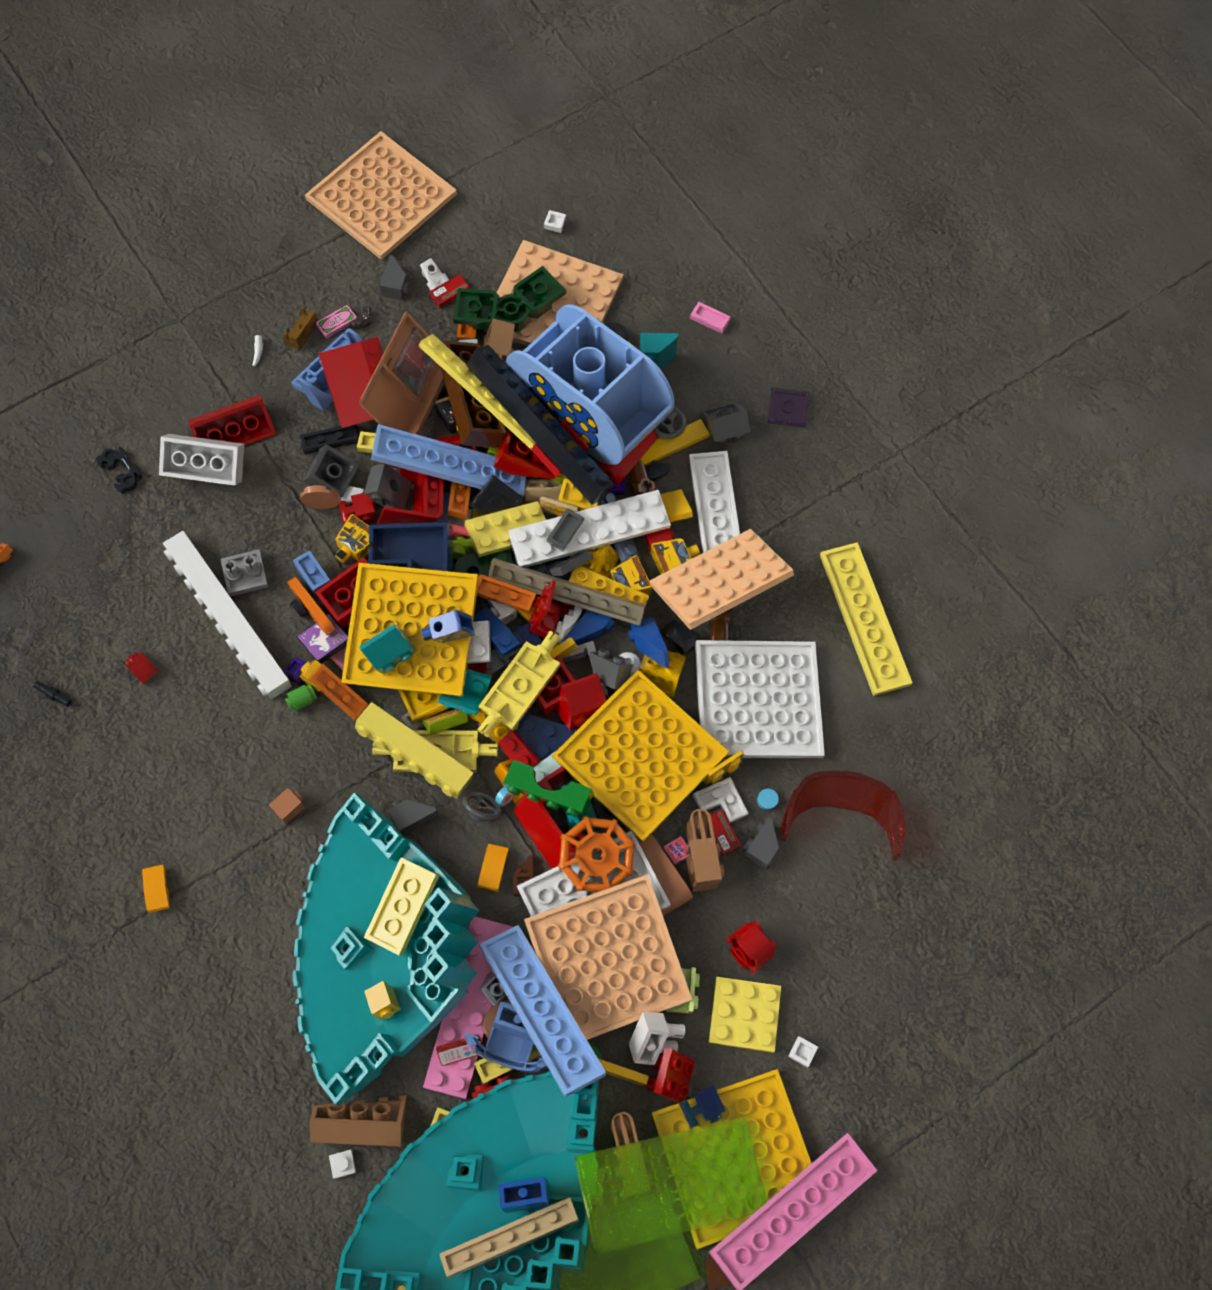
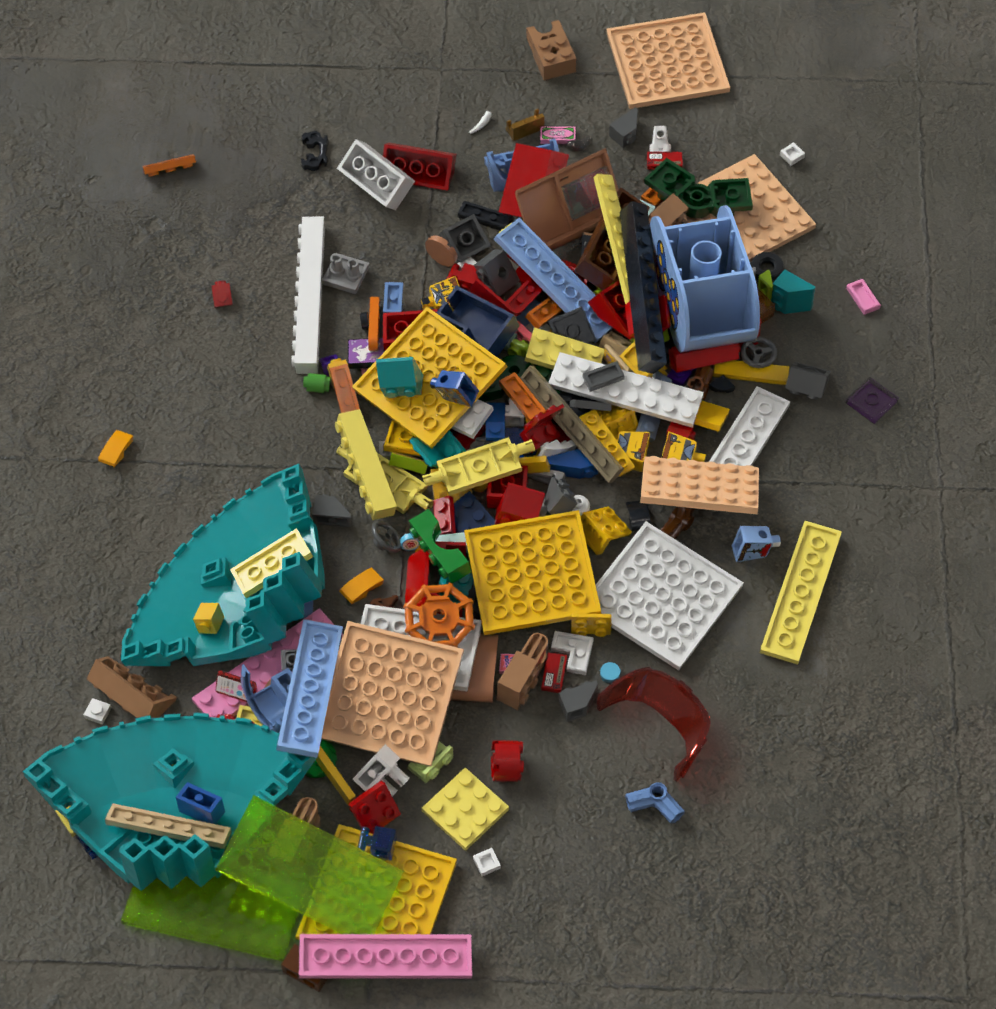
camera: 40 degrees right, 10 degrees down
(52, 693) = (148, 276): black bar -> none
(271, 244) = (552, 51): none -> medium nougat brick
(287, 805) = (248, 450): nougat brick -> none
(649, 641) = (609, 498): blue slope -> none
(801, 596) = (753, 542): none -> light blue torso
(907, 889) = (665, 804): none -> medium blue piece

